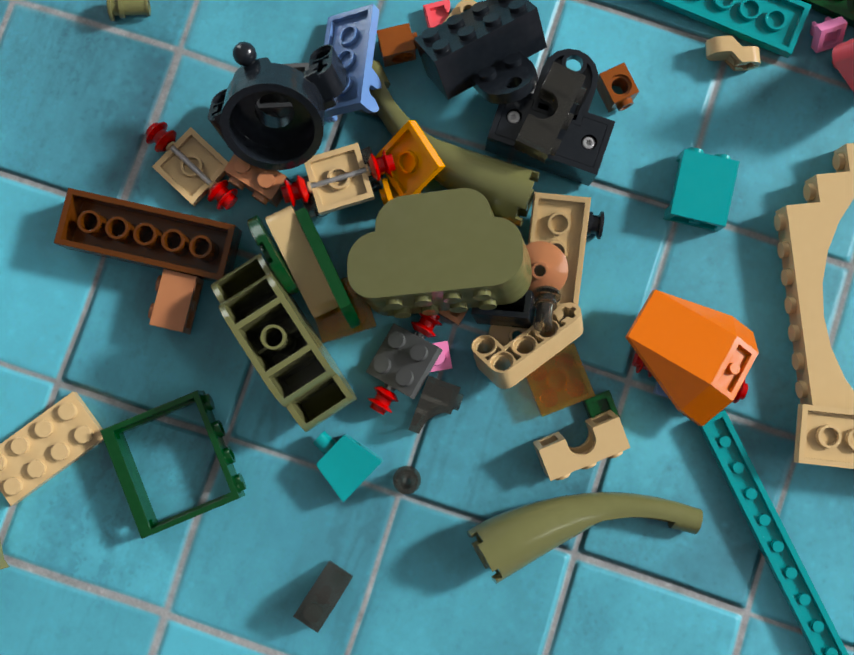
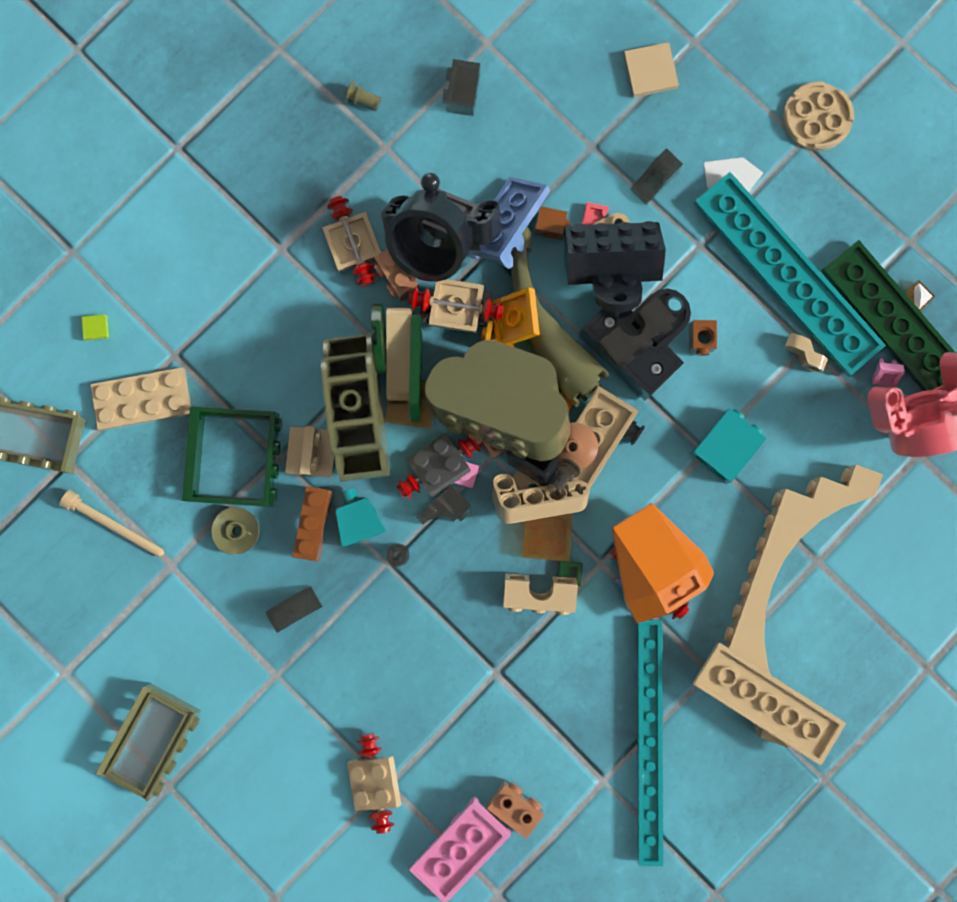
camera: 30 degrees right, 0 degrees up
(21, 598) = (71, 501): none -> tan piece
(147, 235) = (294, 279): reddish brown brick -> none
(175, 301) = (291, 337): nougat brick -> none
(203, 545) = (223, 531): none -> olive dish
(257, 416) = (309, 452): none -> tan bracket
(297, 493) = (311, 524): none -> dark orange arch
(532, 530) = (473, 637): olive brick -> none

